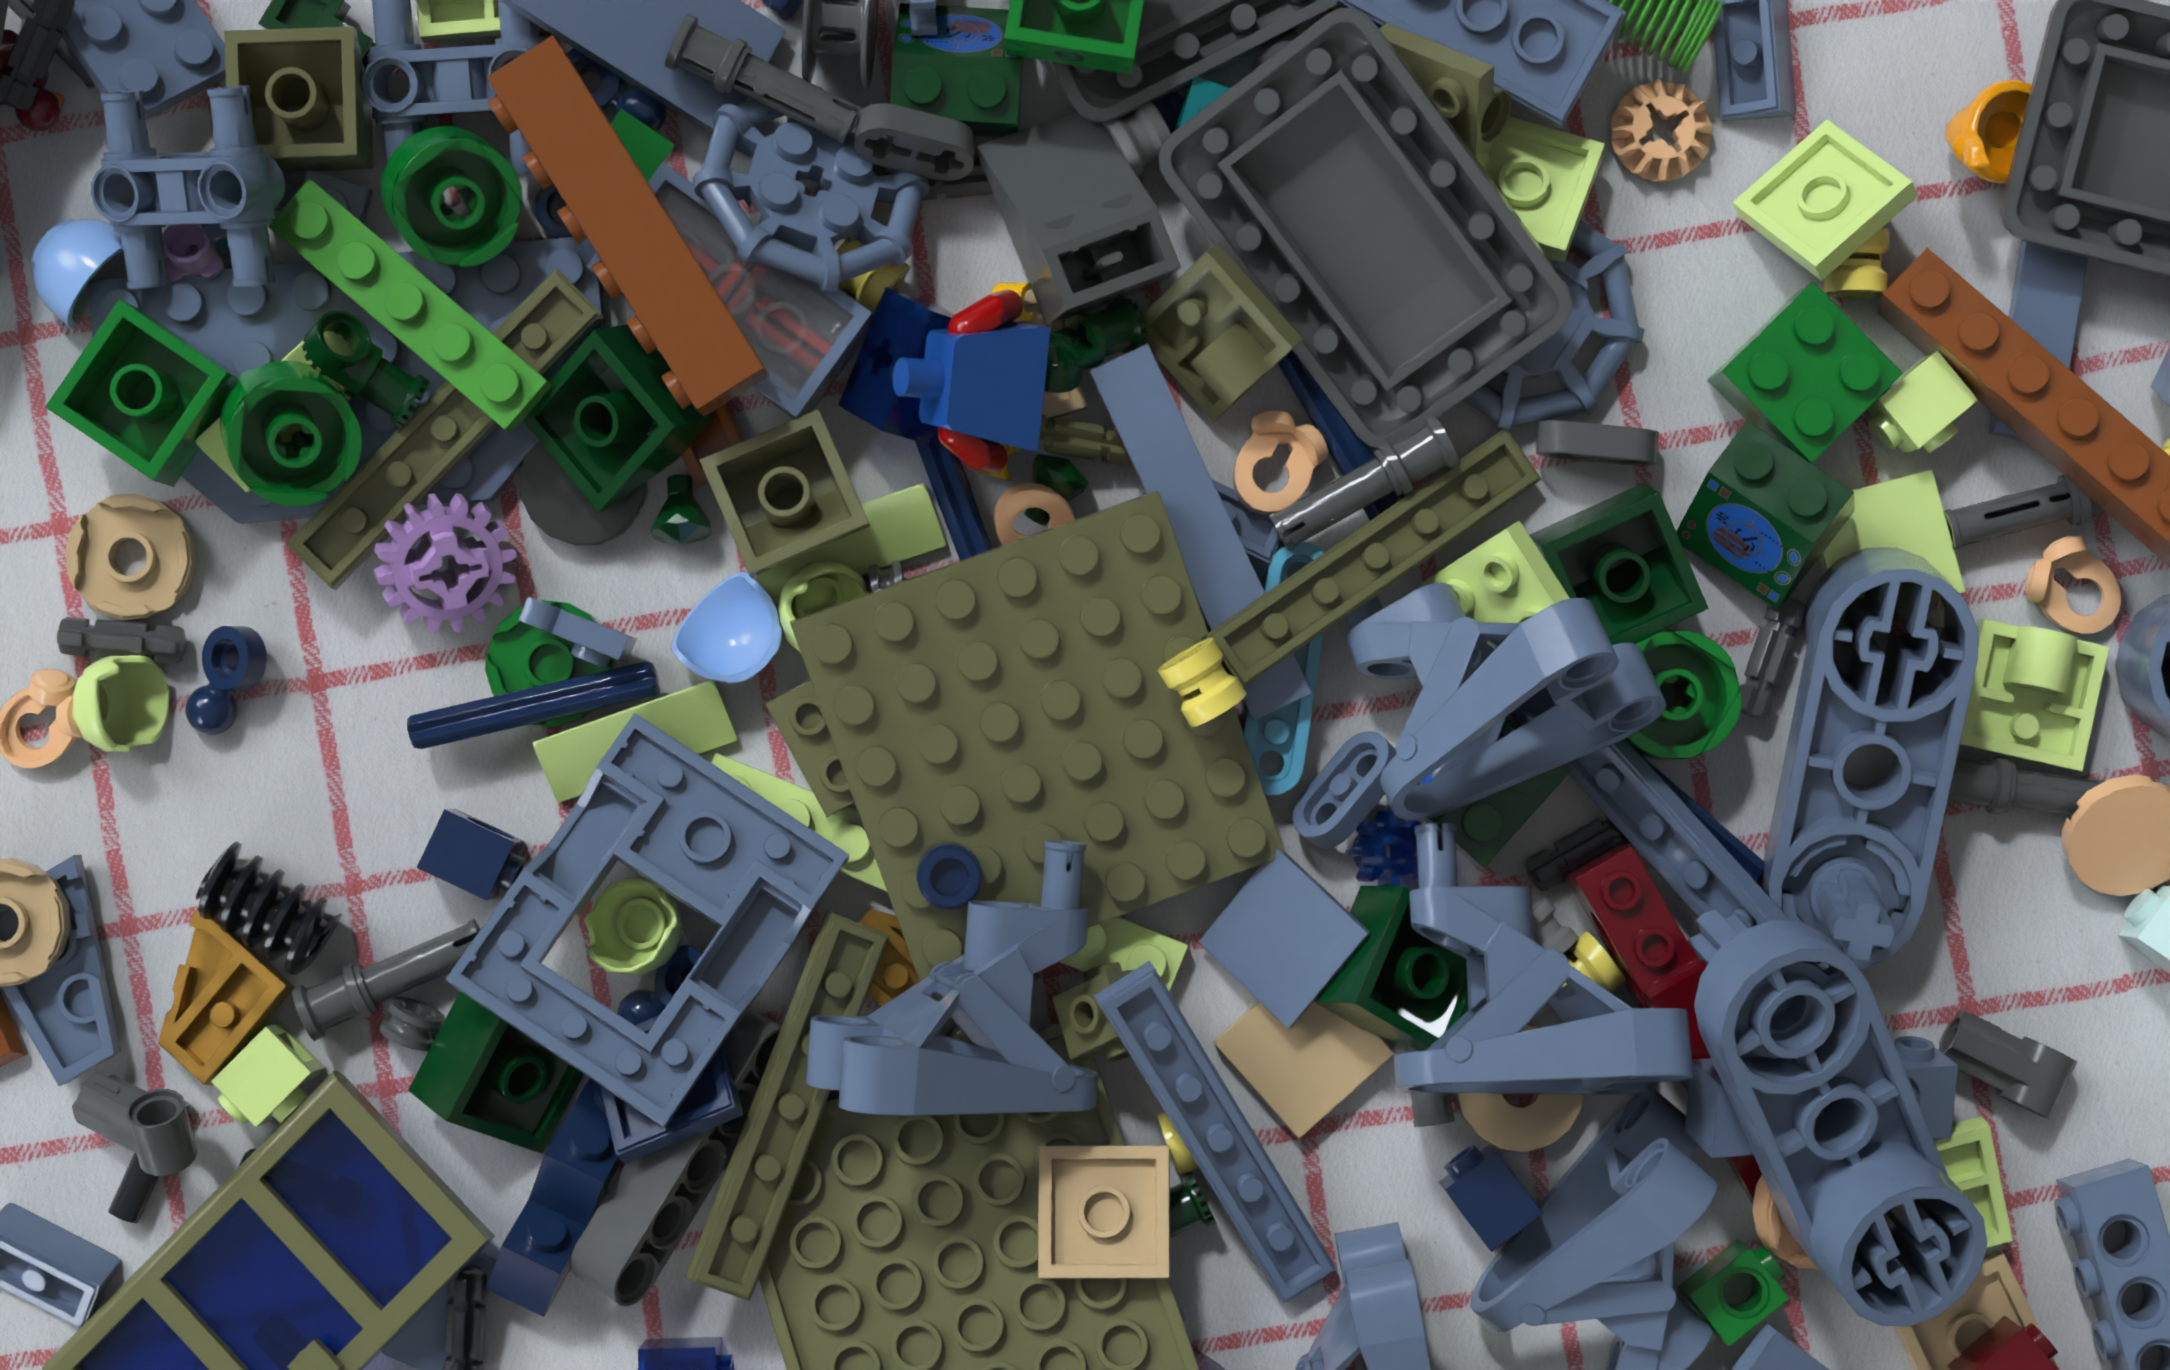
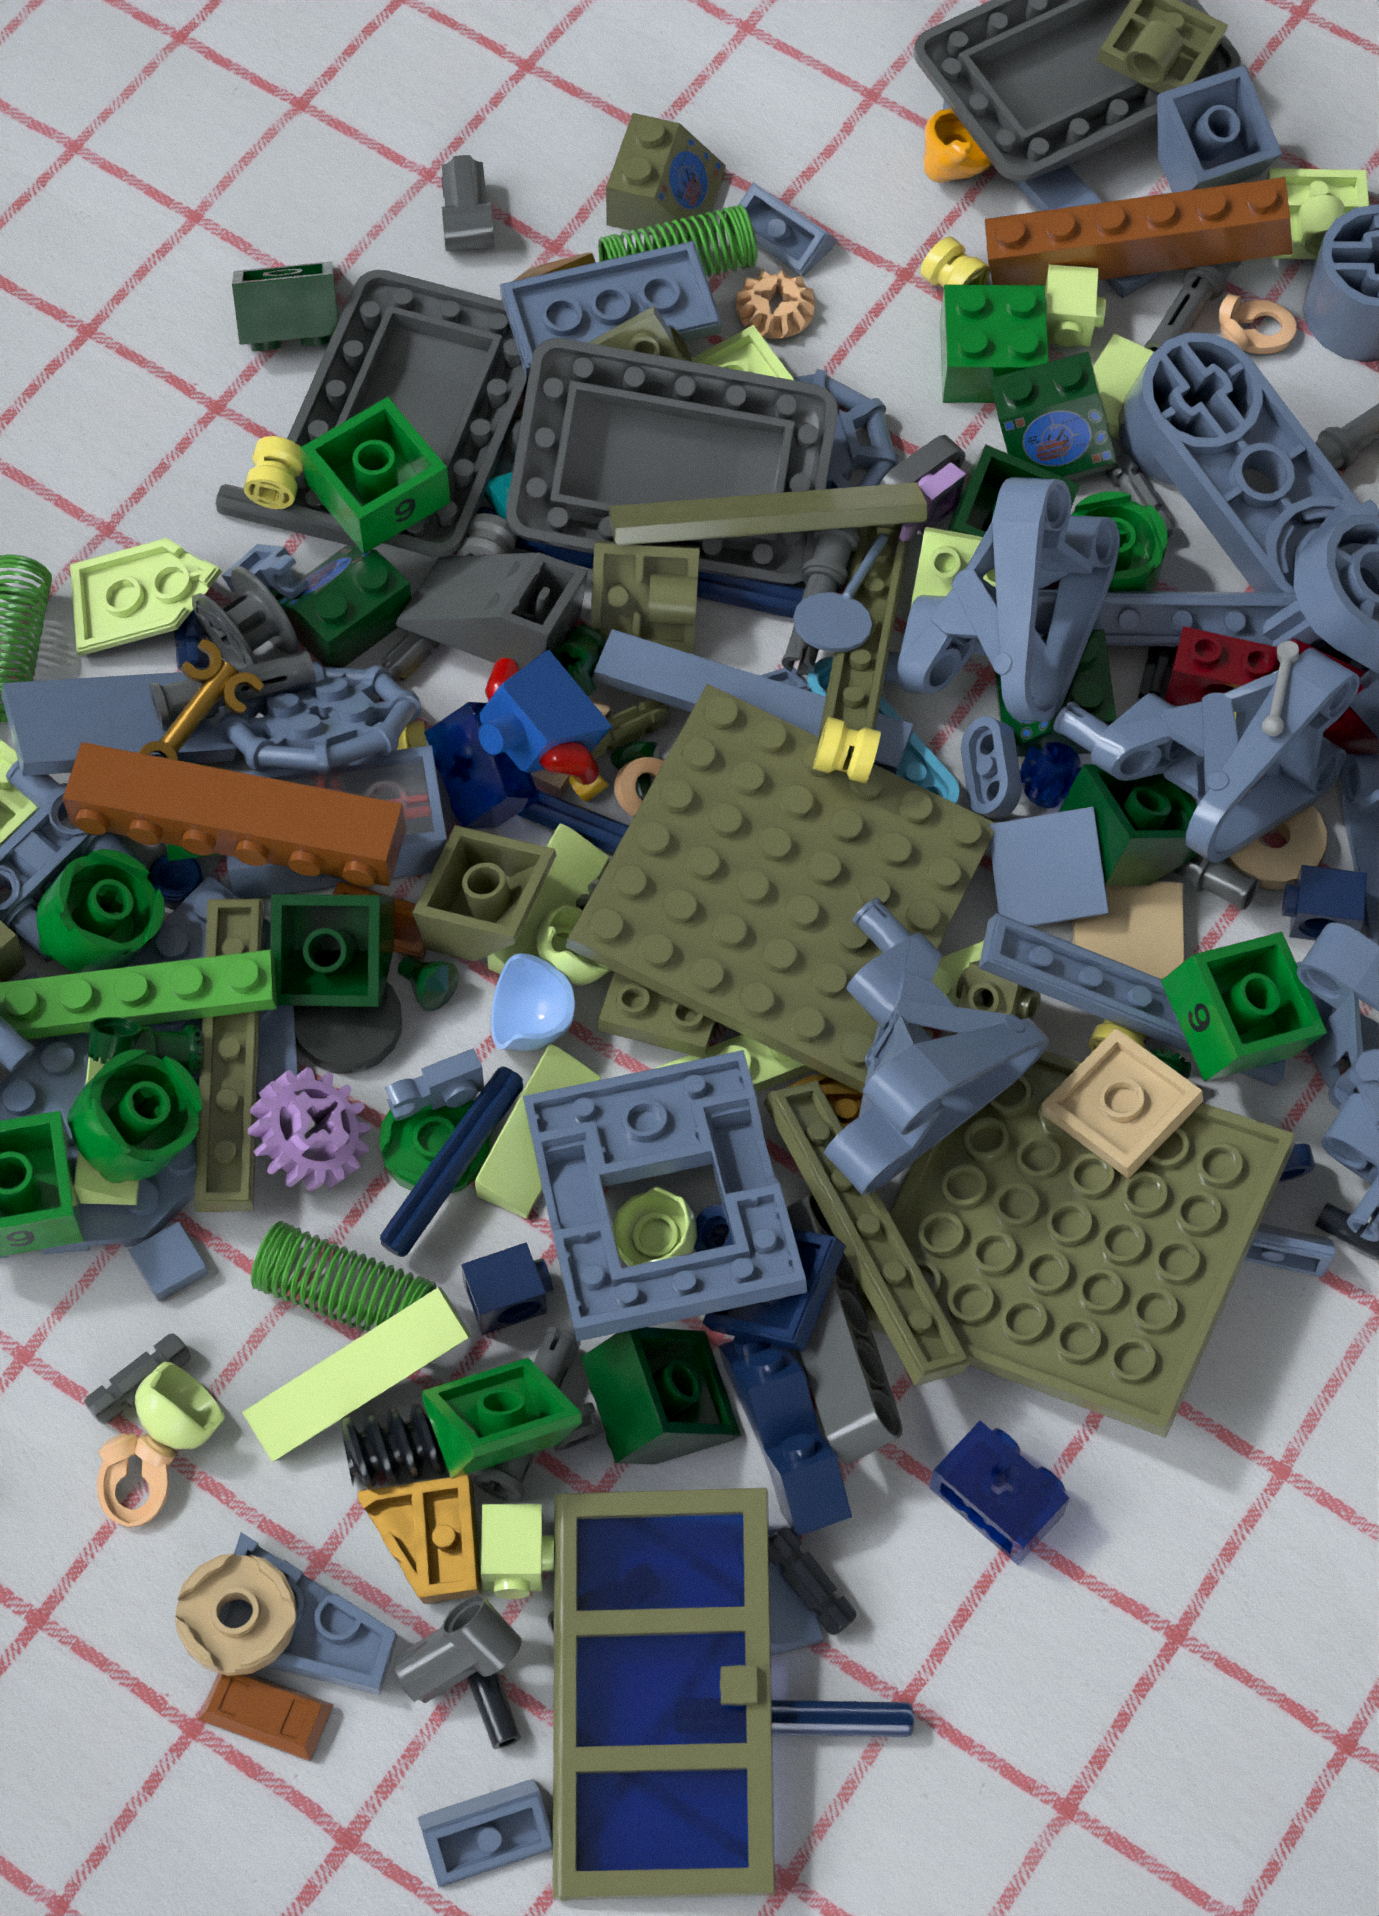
camera: 45 degrees left, 25 degrees down
(168, 564) = (98, 1357): tan tile -> none
(231, 661) = (240, 1365): dark blue plate -> none
(239, 559) = (168, 1261): none -> sand blue tile
(276, 820) = (356, 1374): none -> yellowish green tile
(317, 649) = (277, 1258): none -> bright green piece
(333, 979) = (498, 1416): none -> green slope
(738, 74) = (219, 681): none -> pearl gold bar
(915, 142) = (359, 651): dark grey beam -> none
(949, 875) = (817, 994): dark blue tile -> none
(1287, 1238) = (1243, 1006): none -> green brick
(1306, 452) = (759, 620): light nougat piece -> none
(1344, 530) = (837, 620): none -> sand blue piece
(1392, 369) = (767, 513): none -> olive tile
(1578, 479) = (941, 495): none -> lavender plate
(1649, 998) = (1286, 654): none -> light grey hinge
(1824, 199) = (903, 251): yellowish green tile -> none
(2033, 694) = (1310, 381): yellowish green plate -> none

